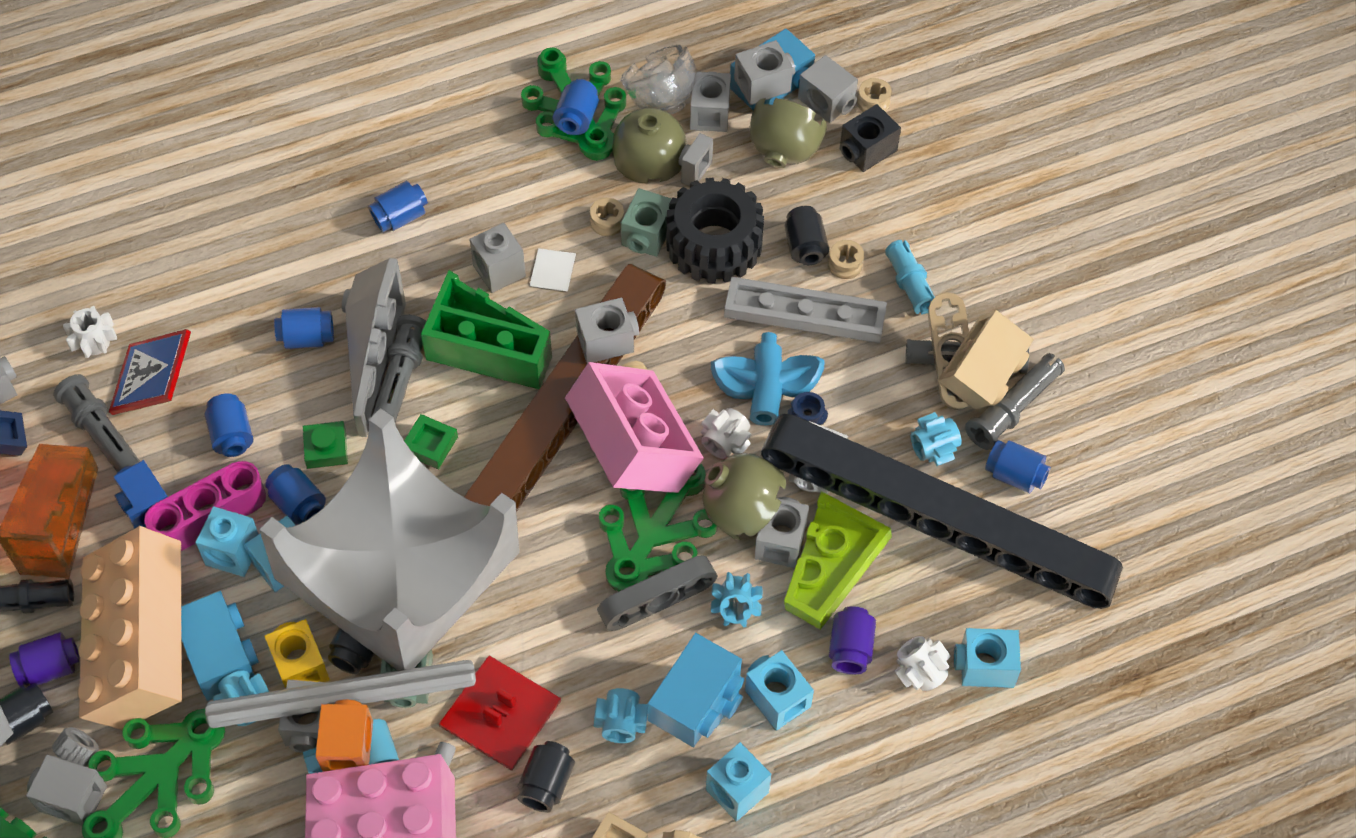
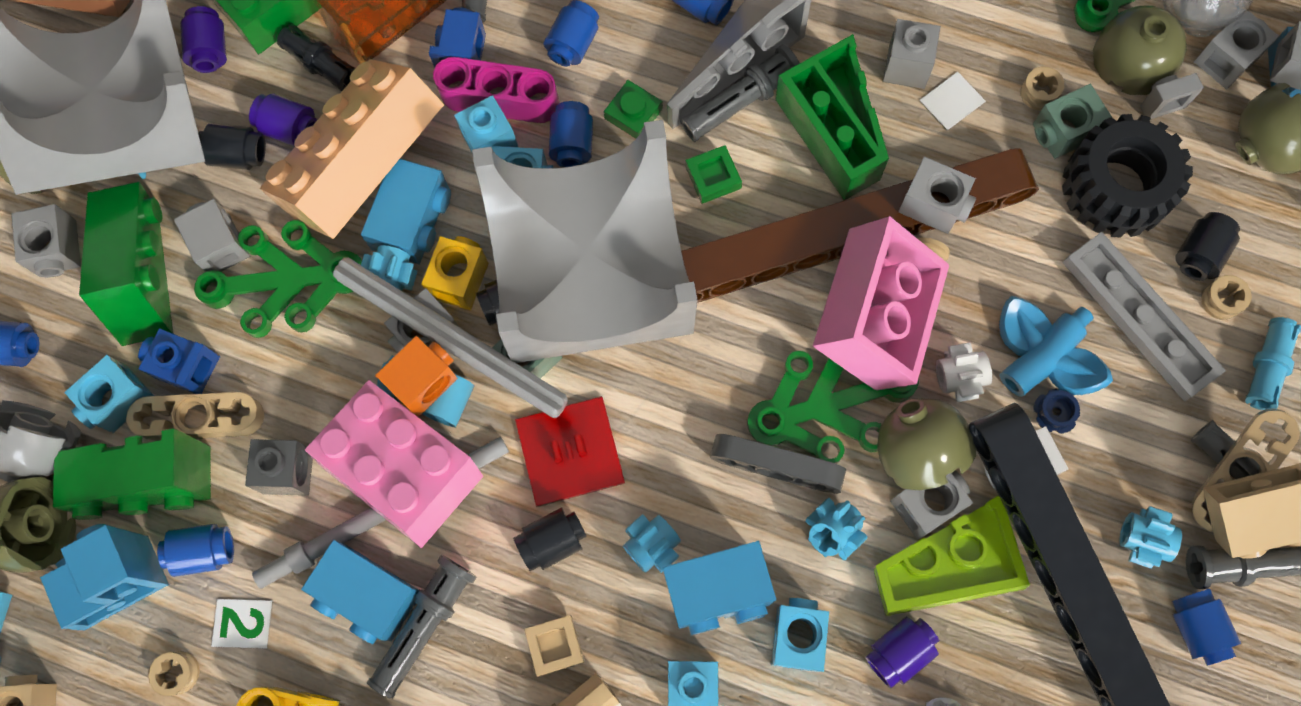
camera: 50 degrees right, 15 degrees up
(75, 746) = (245, 199): light grey axle -> none

